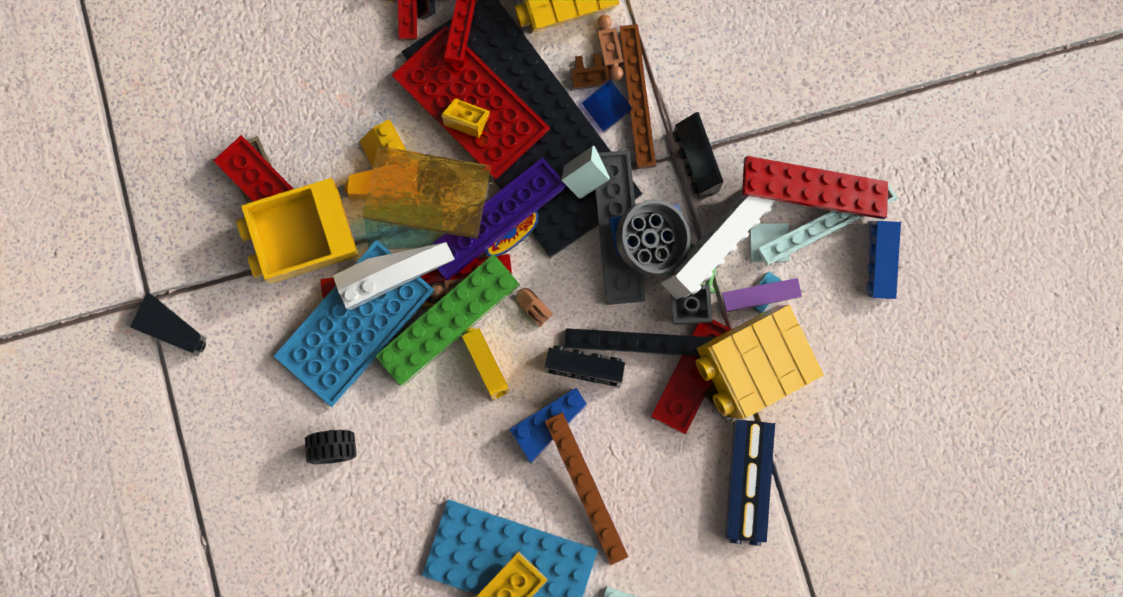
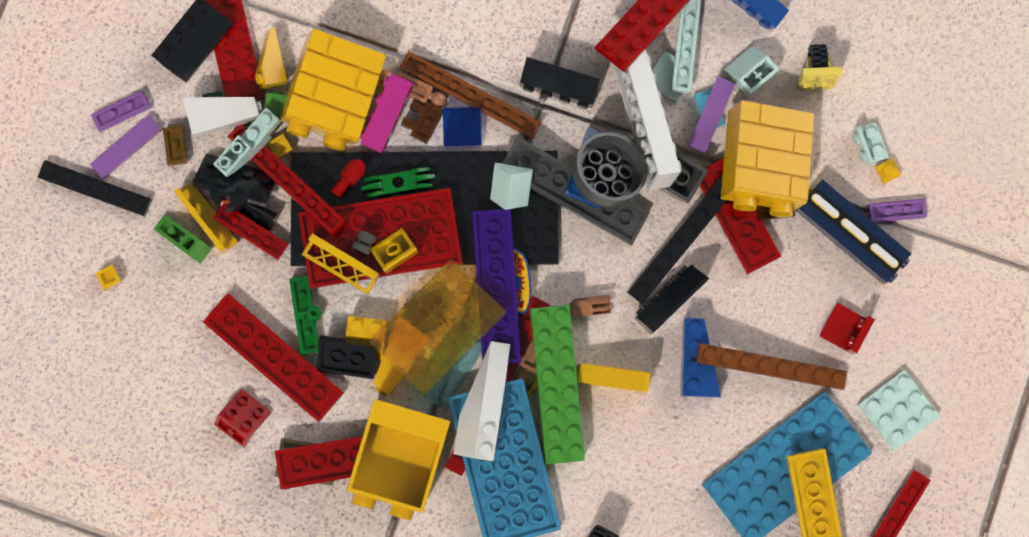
camera: 55 degrees left, 5 degrees up
(254, 95) = (242, 417): none -> red bracket
(318, 88) = (273, 357): none -> red plate
(356, 140) = (346, 357): none -> black plate
(368, 90) = (305, 314): none -> green hinge
(432, 81) = (340, 255): none -> yellow fence
(460, 87) = (366, 238): none -> dark grey wheel
(504, 45) = (349, 176): none -> red arm
(531, 95) = (386, 182): none -> green piece
(575, 40) = (387, 113): none -> dark pink brick
(663, 530) = (846, 329): none -> red bracket
(795, 507) = (897, 210): none -> medium lavender tile
(822, 304) = (751, 71): none -> light aqua slope
(823, 476) = (887, 171): none -> yellow plate
(835, 445) = (870, 144): none -> light aqua bracket
(862, 358) = (818, 70): none -> light yellow plate

